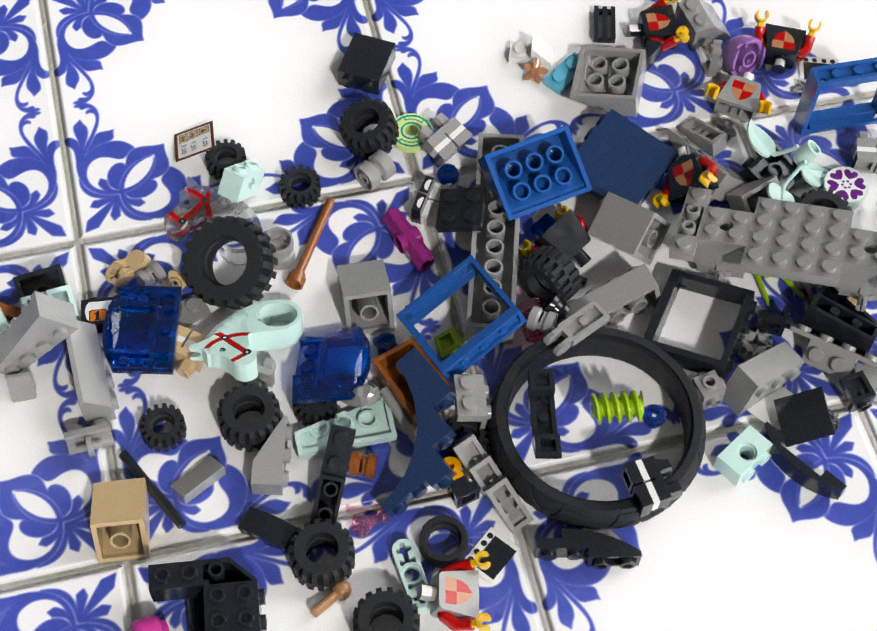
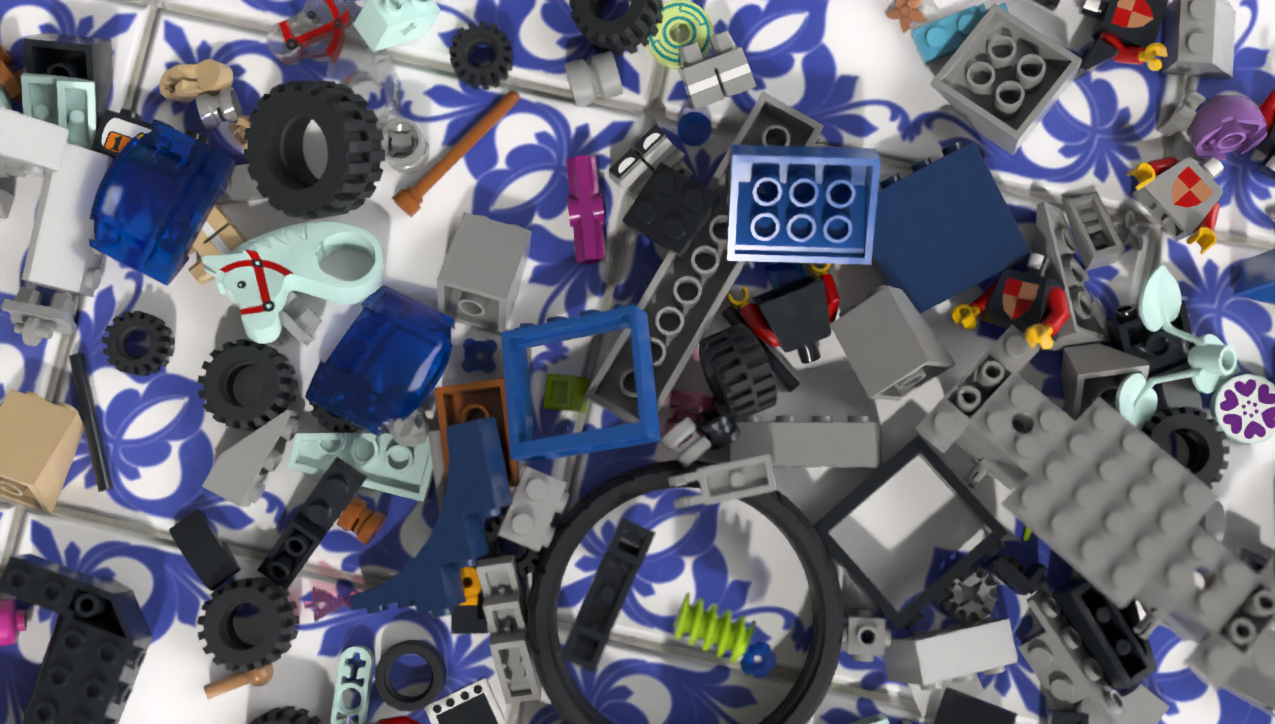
camera: 30 degrees right, 25 degrees up
(198, 479) = (151, 436): light grey slope -> none

